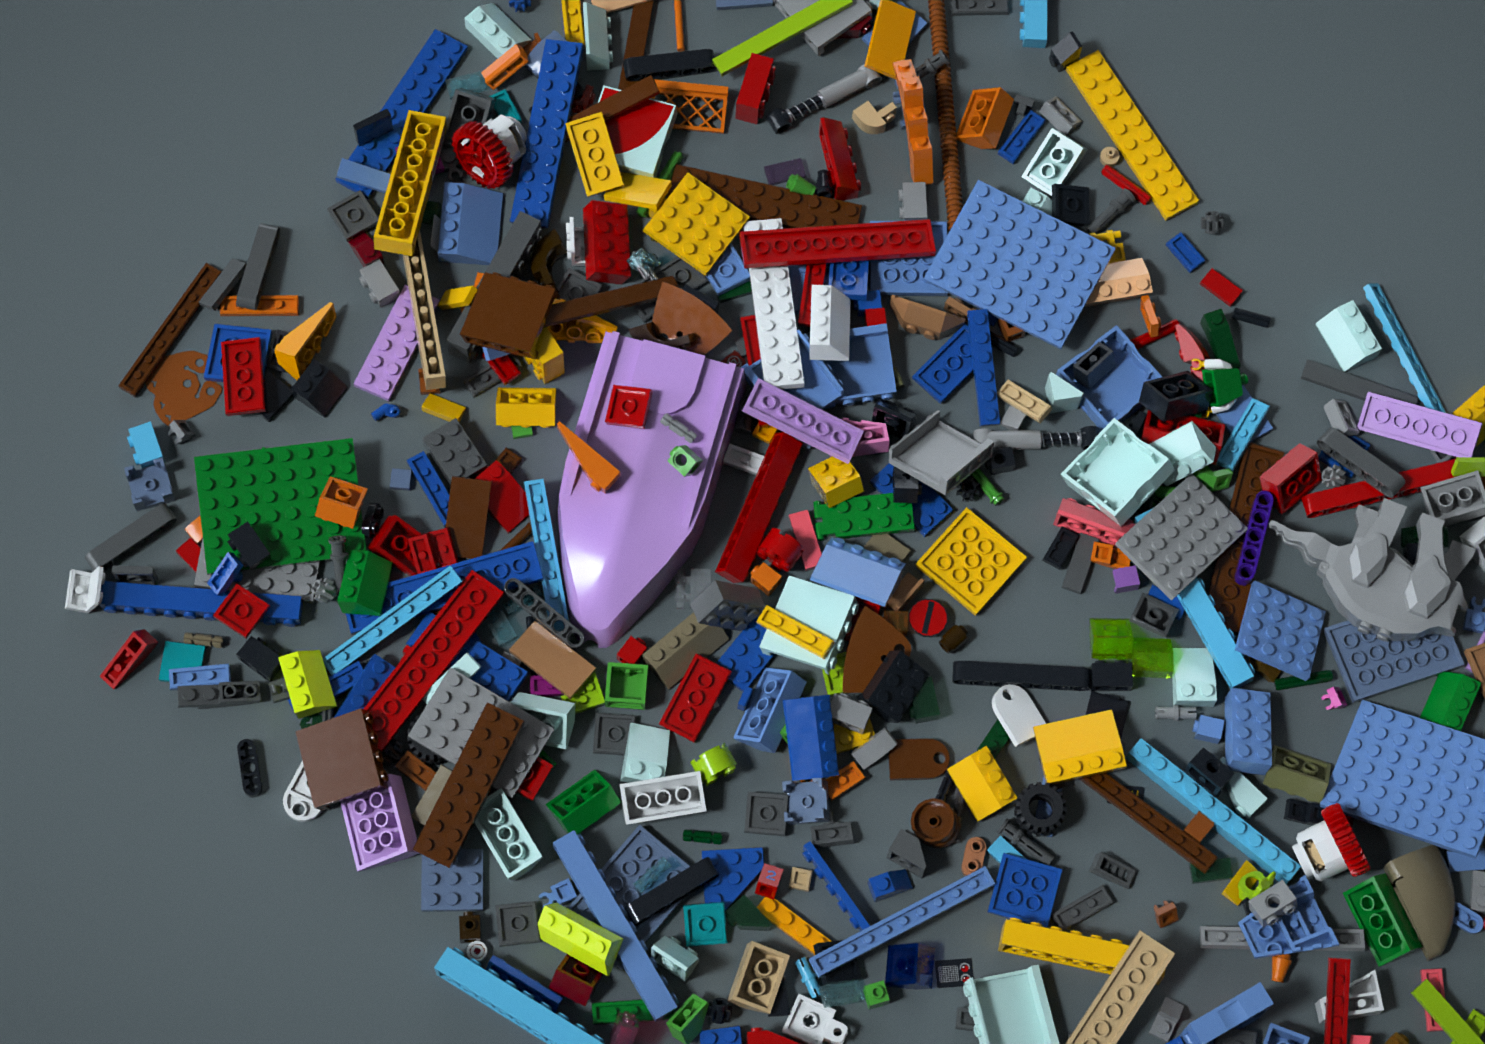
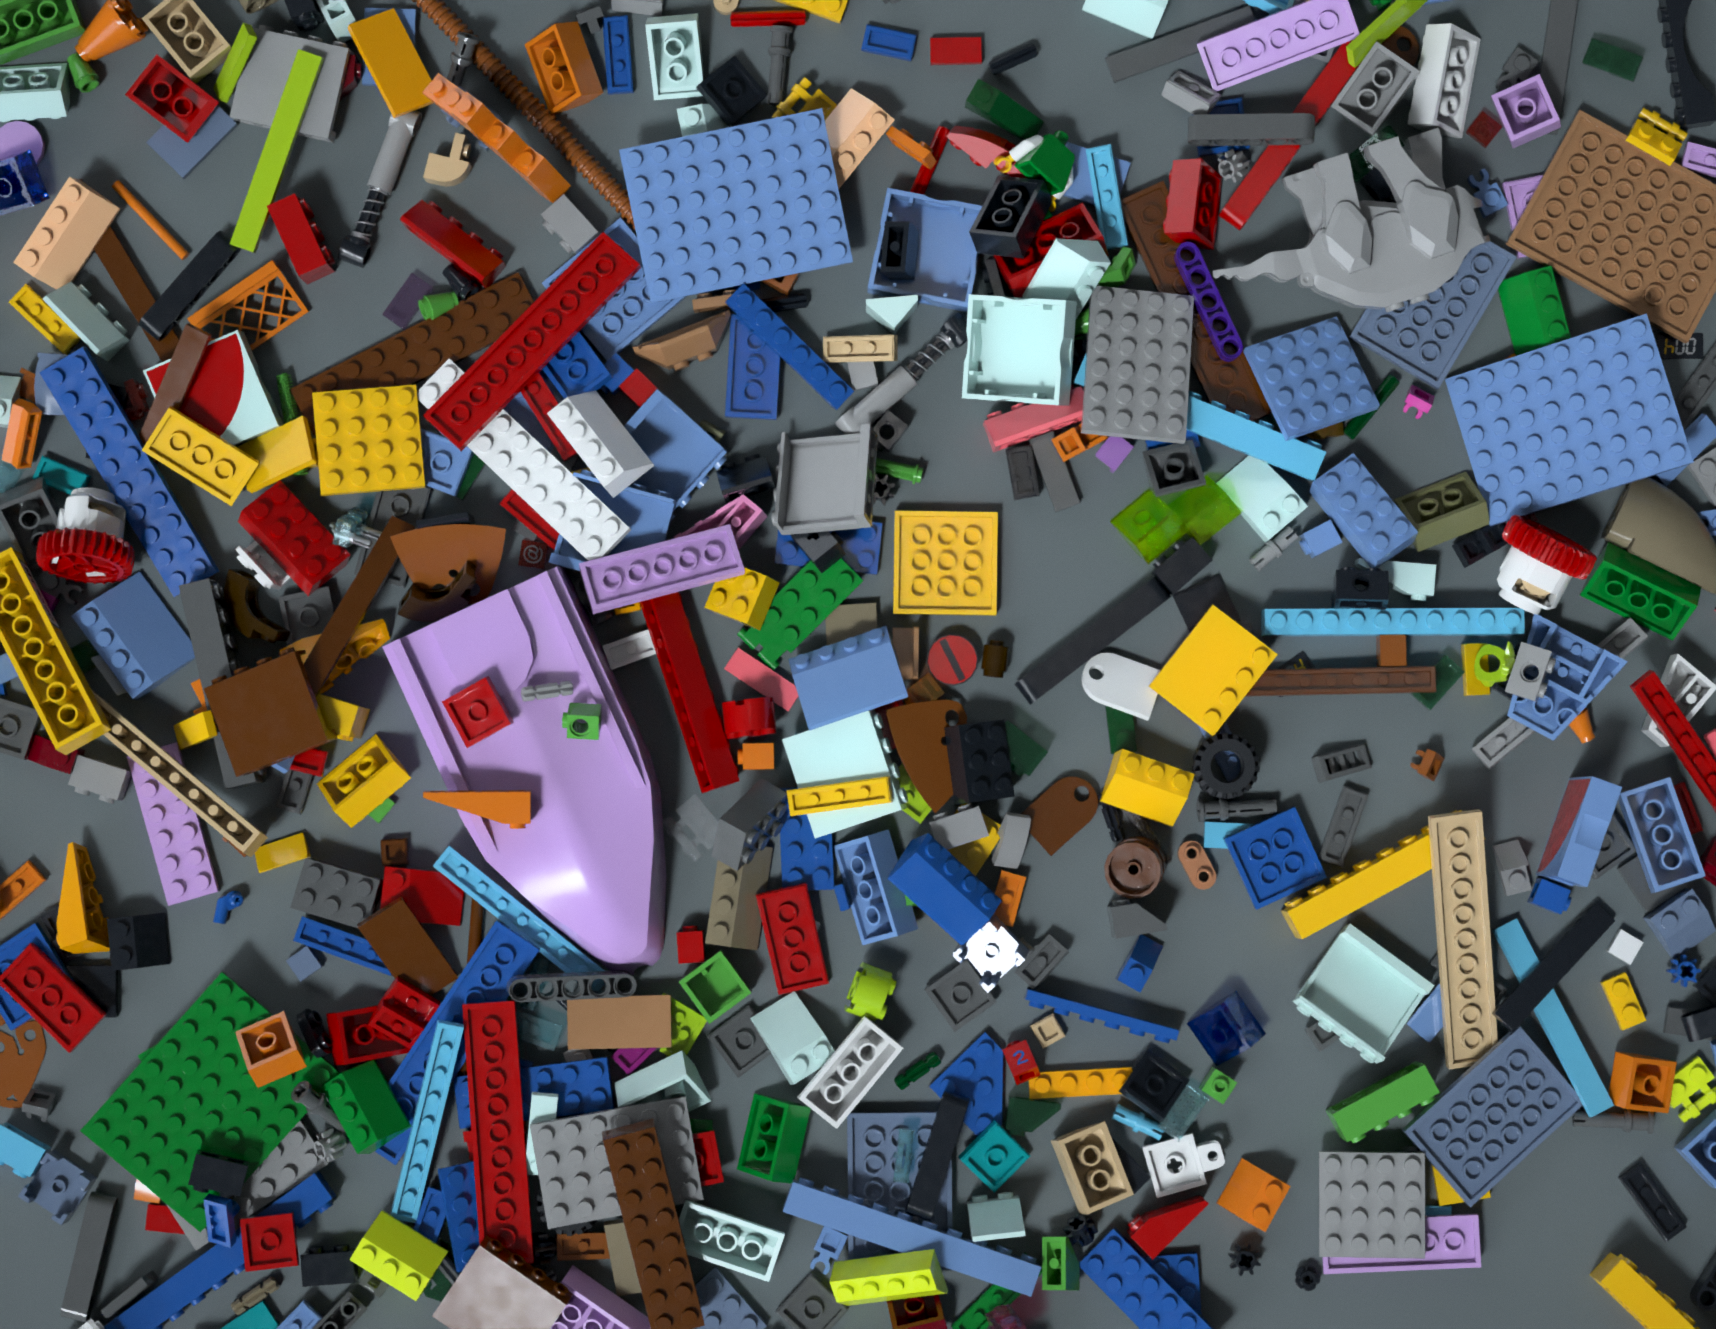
camera: 35 degrees left, 15 degrees up
(901, 922) = (1185, 995): medium blue plate -> none
(953, 972) = (1271, 995): black sticker -> none

